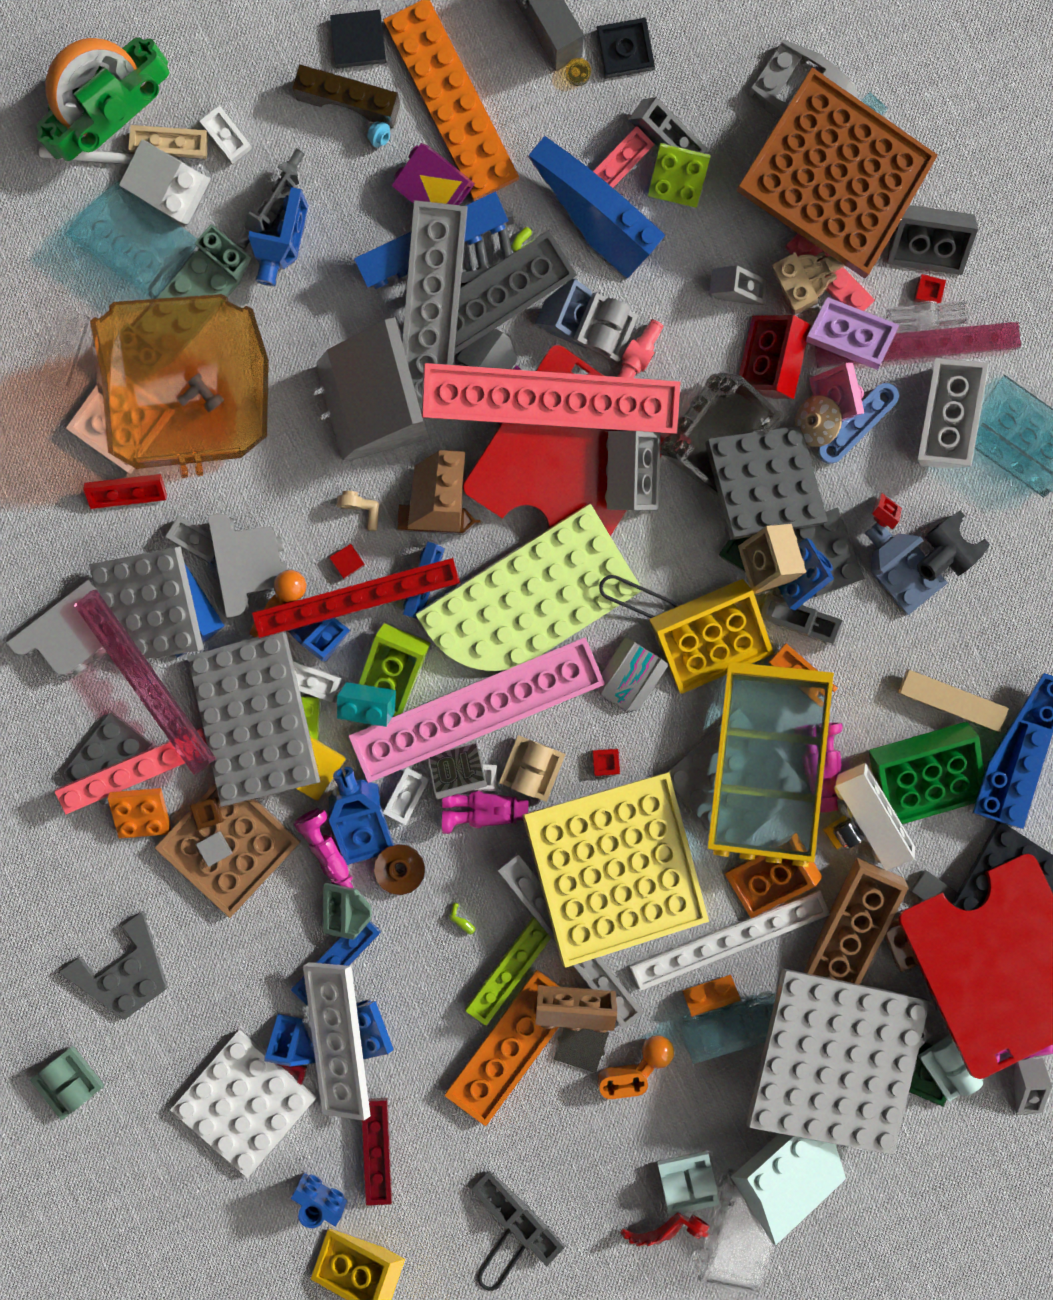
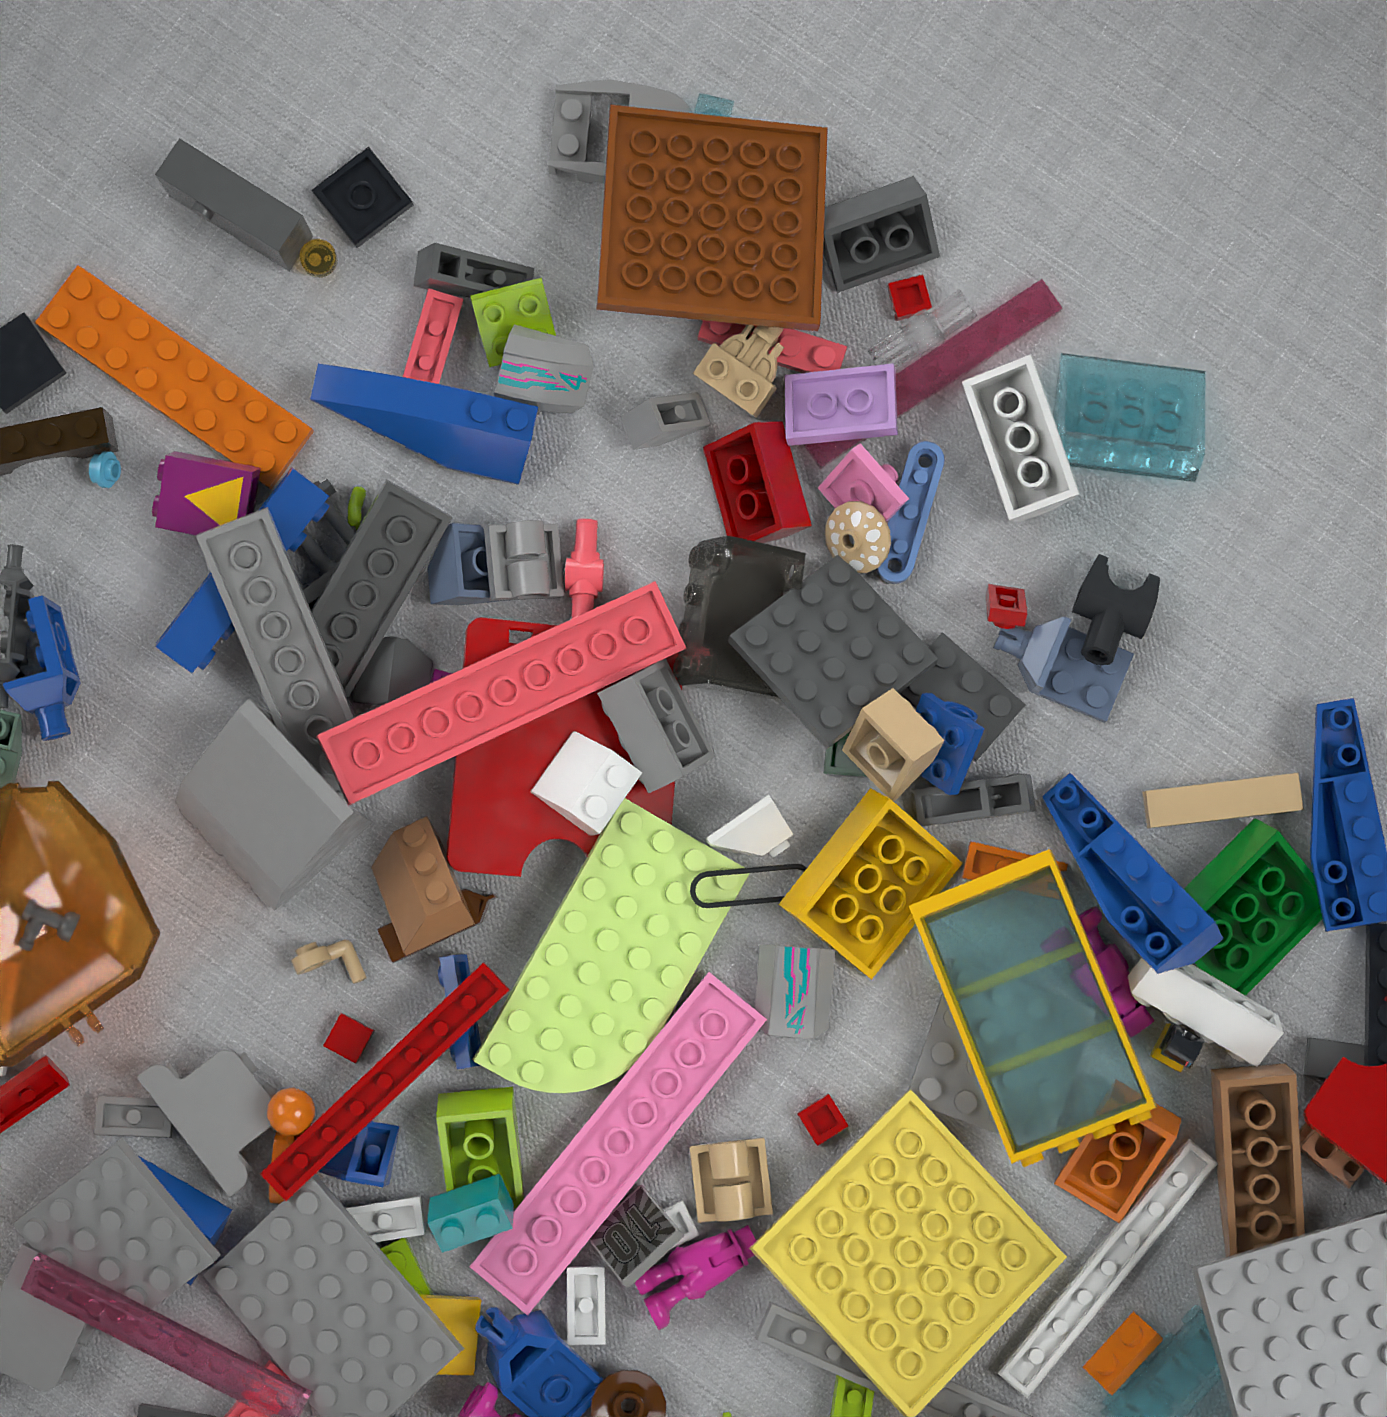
camera: 25 degrees left, 5 degrees down
(572, 482) = (586, 783): none -> white slope
(658, 567) = (754, 832): none -> white slope
(681, 215) = (544, 371): none -> light grey slope
(871, 721) = (1130, 884): none -> blue wedge

